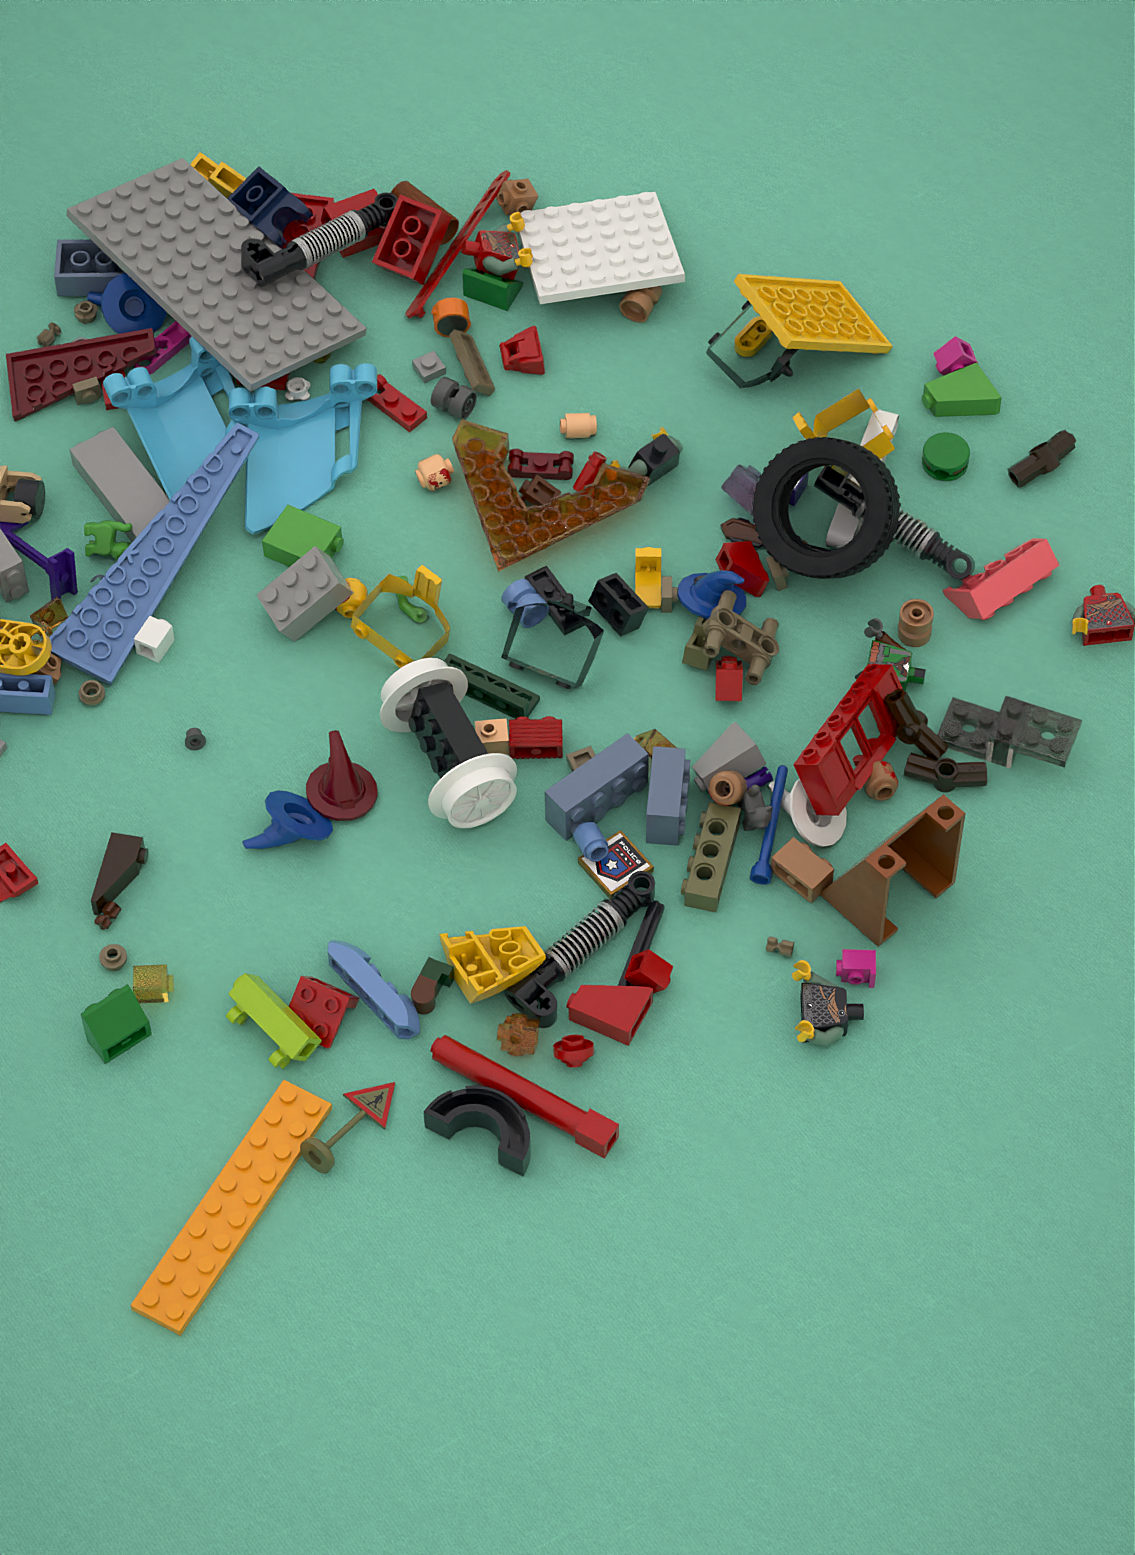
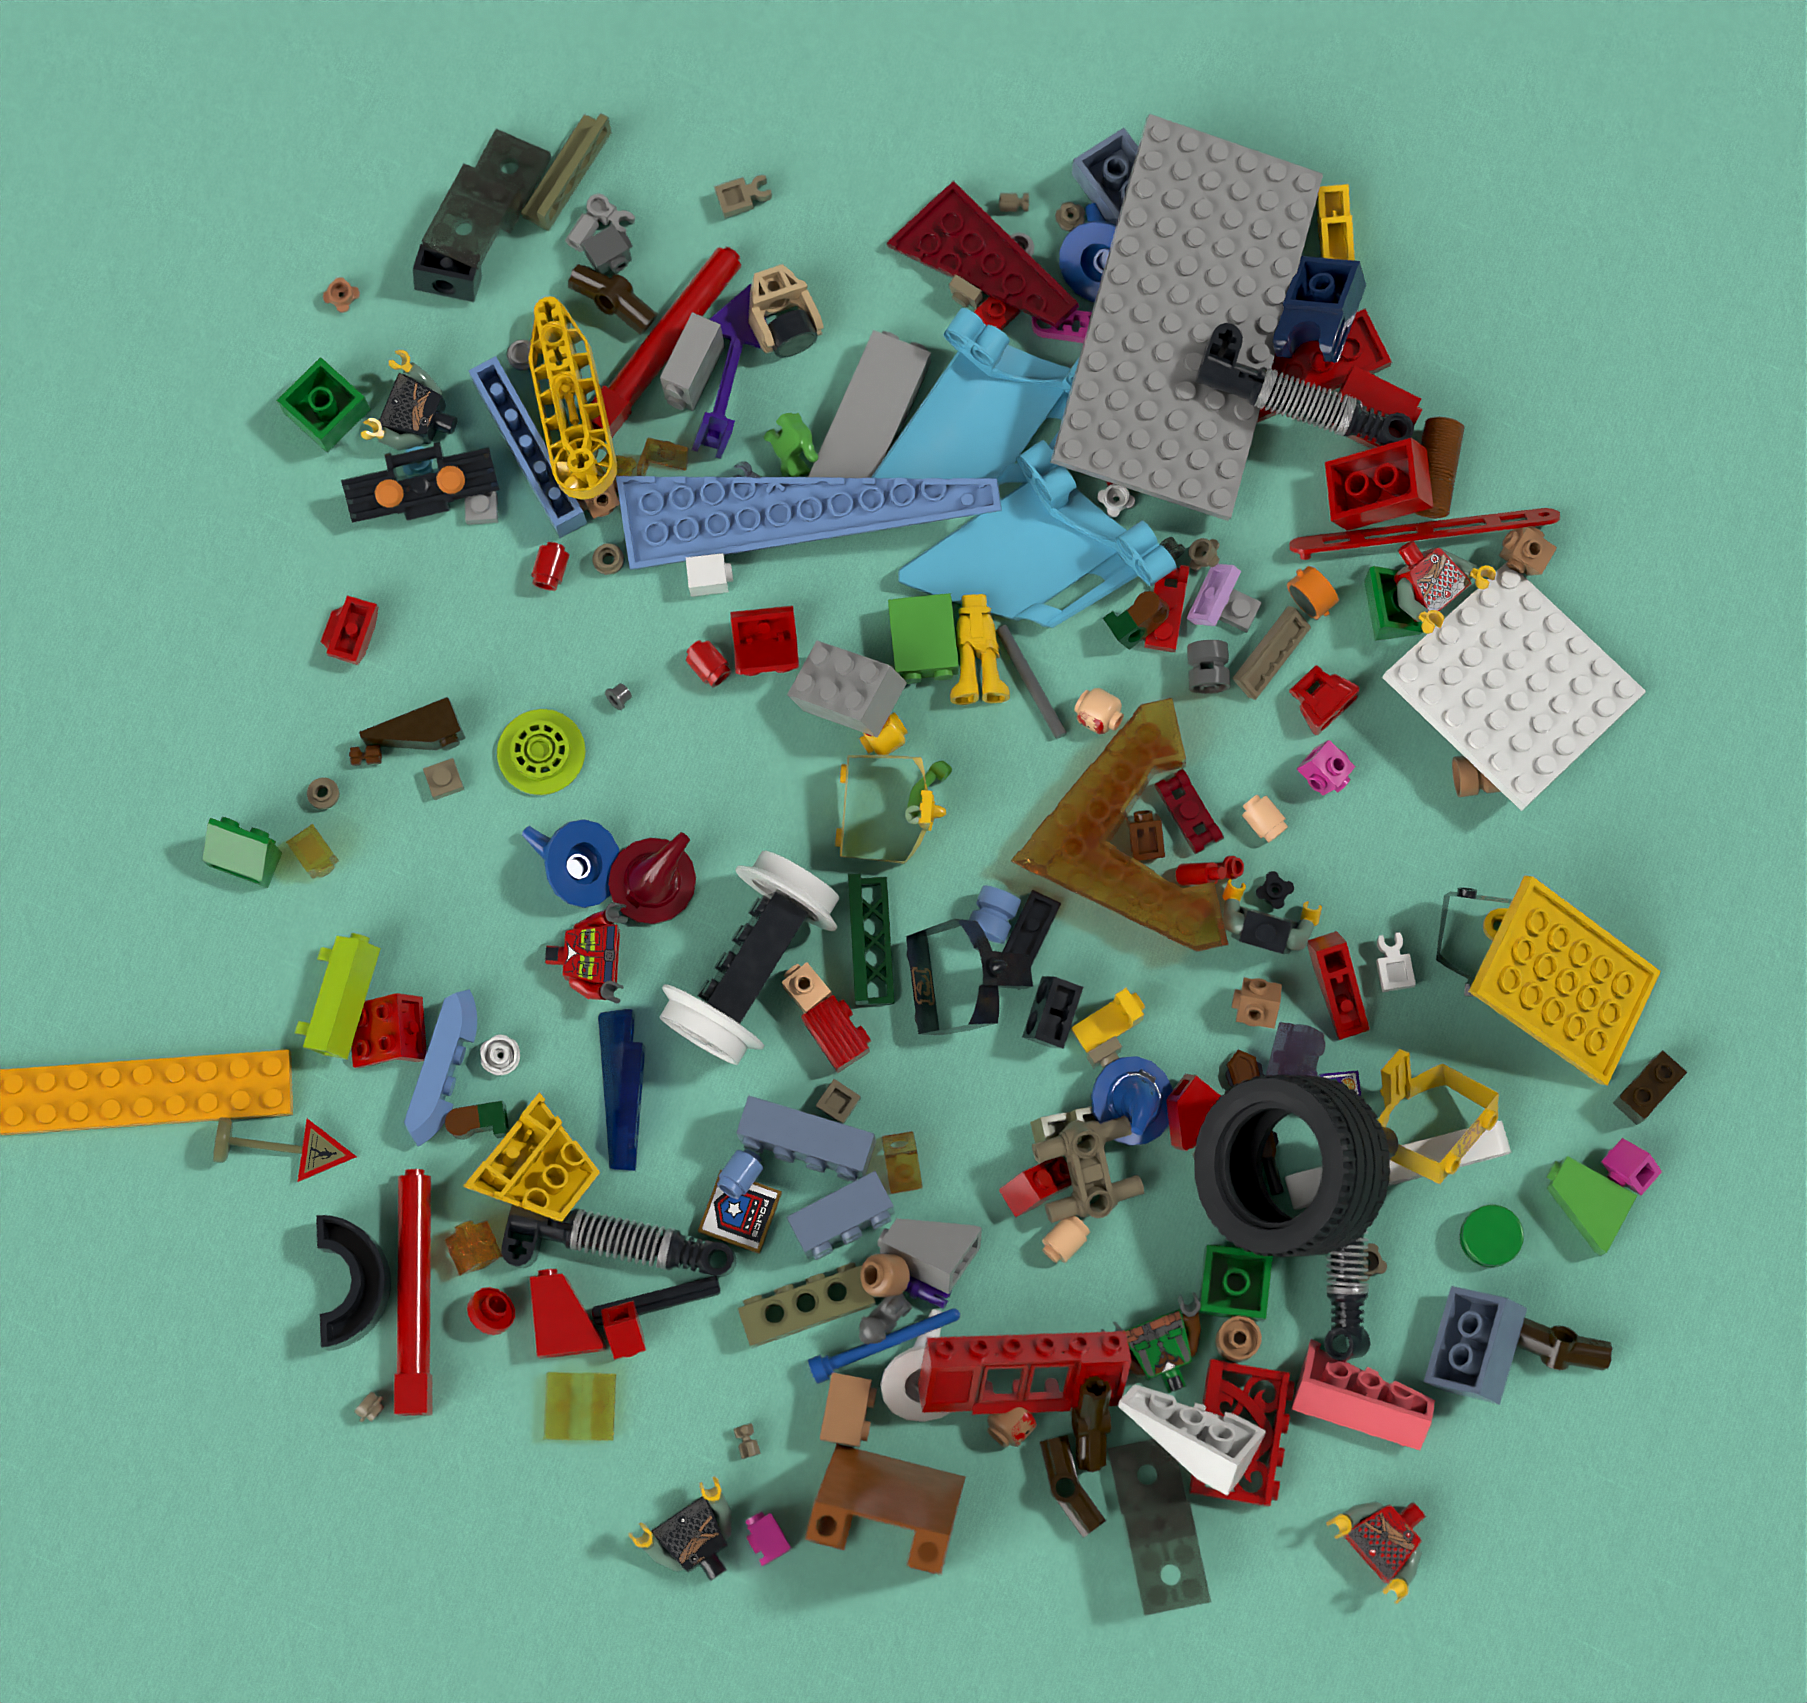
camera: 60 degrees right, 20 degrees up
(68, 727) = (550, 566): none -> red brick
(164, 878) = (443, 779): none -> dark tan plate
(193, 802) = (541, 751): none -> lime wheel
(216, 672) = (708, 663): none -> red brick
(228, 628) = (765, 640): none -> red bracket
(335, 511) = (977, 638): none -> yellow piece
(366, 850) = (591, 954): none -> torso
(374, 357) = (1199, 549): none -> dark tan plate
(381, 502) = (1031, 682): none -> dark grey bar
(392, 416) = (1138, 620): none -> leg
(392, 940) = (496, 1045): none -> white plate
(407, 371) = (1213, 595): none -> lavender plate
(471, 884) = (622, 1085): none -> clear blue wedge
(573, 372) = (1326, 768): none -> dark pink brick
(585, 1169) = (369, 1407): none -> dark tan plate
(624, 445) = (1275, 899): none -> black plate
(681, 1036) = (579, 1406): none -> clear yellow slope
(699, 491) = (1257, 1002): none -> medium nougat brick
(716, 444) = (1338, 984): none -> red slope
(730, 412) = (1395, 969): none -> white plate
(776, 684) = (1065, 1239): none -> light nougat brick
(875, 597) = (1234, 1283): none -> green brick
(911, 323) = (1650, 1087): none -> dark brown brick
(979, 635) = (1220, 1391): none -> red fence
(980, 664) = (1205, 1443): none -> white wedge
(1012, 494) = (1475, 1344): none -> sand blue brick

